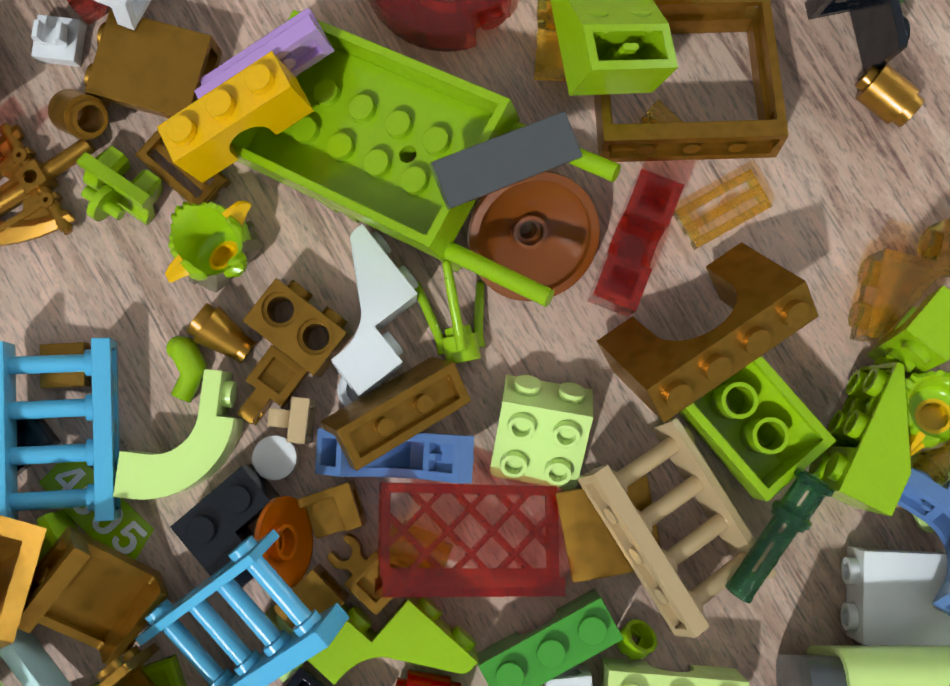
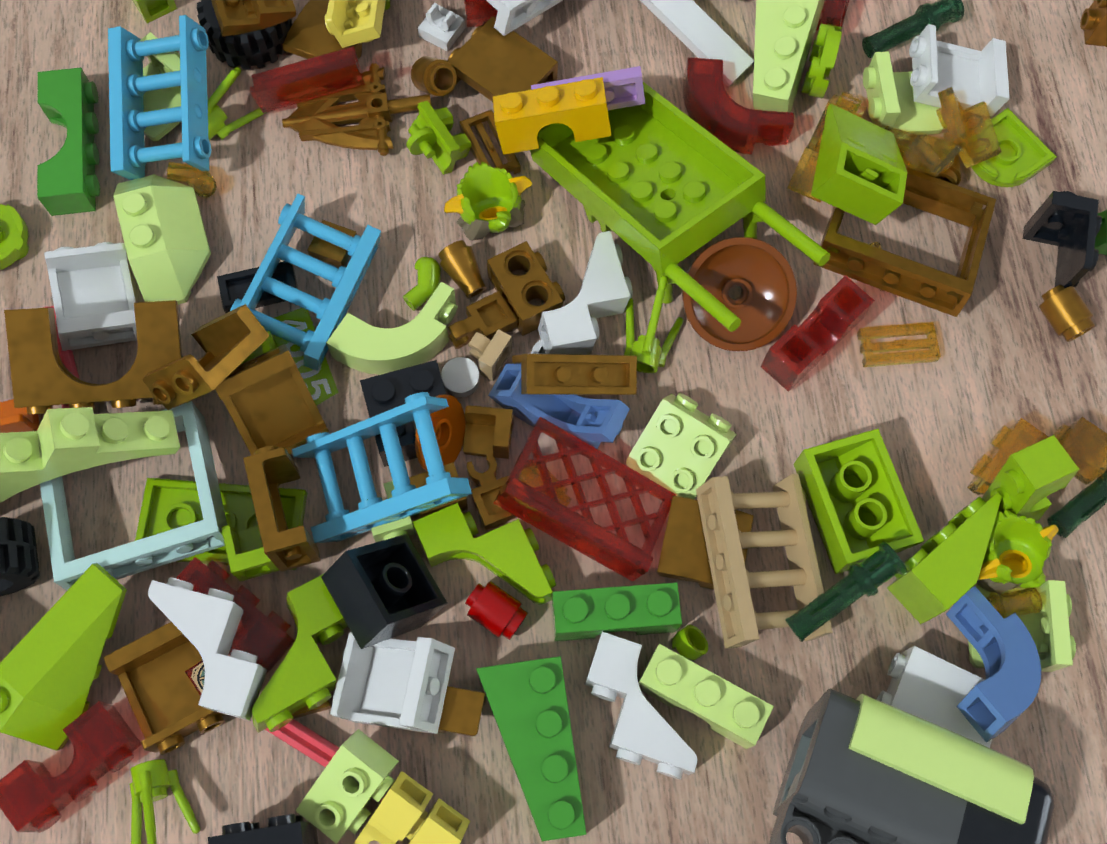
camera: 20 degrees right, 15 degrees down
(505, 160) = (744, 213): dark grey tile -> none
(672, 375) = (896, 410): pearl gold arch -> none

